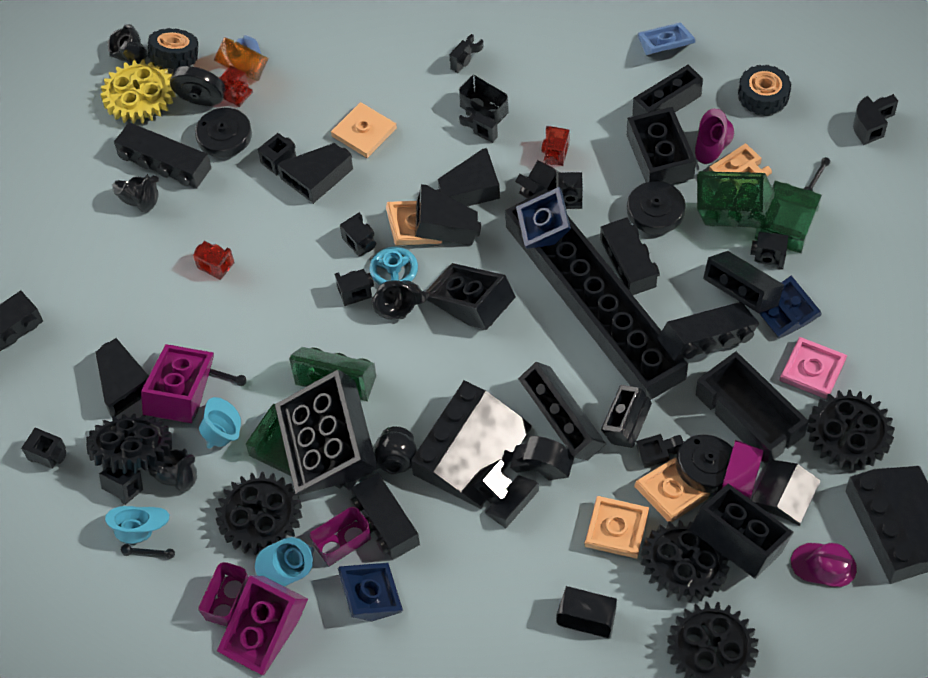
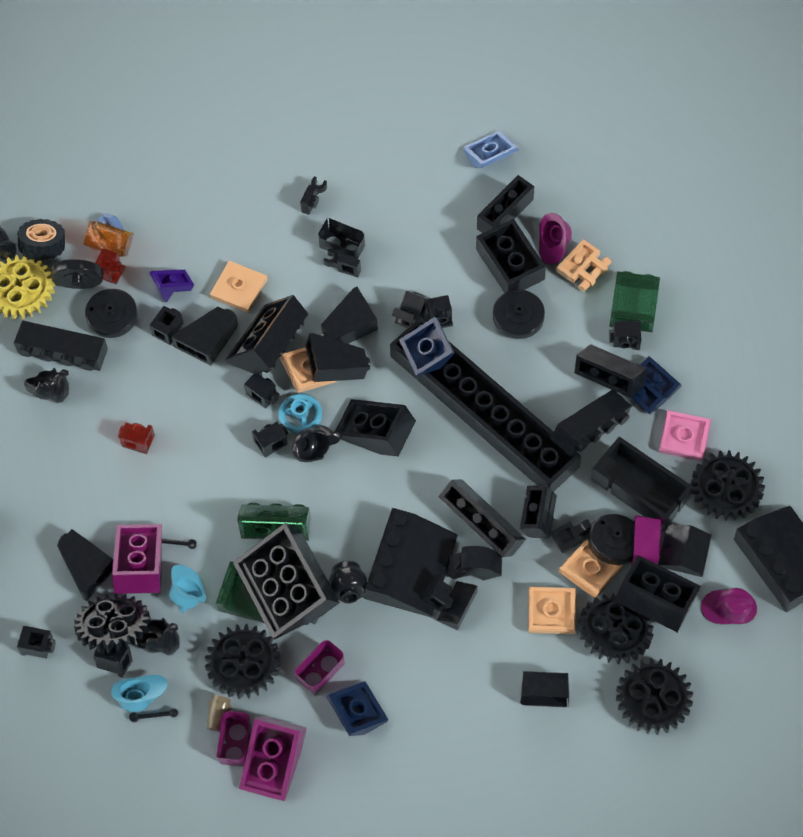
camera: 15 degrees left, 5 degrees up
(216, 555) = (216, 709): none -> dark tan cone
(285, 561) = (278, 699): medium azure piece -> none
(293, 110) = (171, 281): none -> dark purple slope
(379, 181) = (268, 336): none -> black slope
(384, 516) = (353, 641): black brick -> none
(556, 145) = (416, 271): clear red brick -> none
(629, 256) = (505, 364): black brick -> none
(736, 199) = (588, 297): clear green slope -> none
(764, 89) = (588, 184): black wheel -> none
(824, 162) = (655, 243): black hinge -> none
(871, 117) = (685, 194): black brick -> none

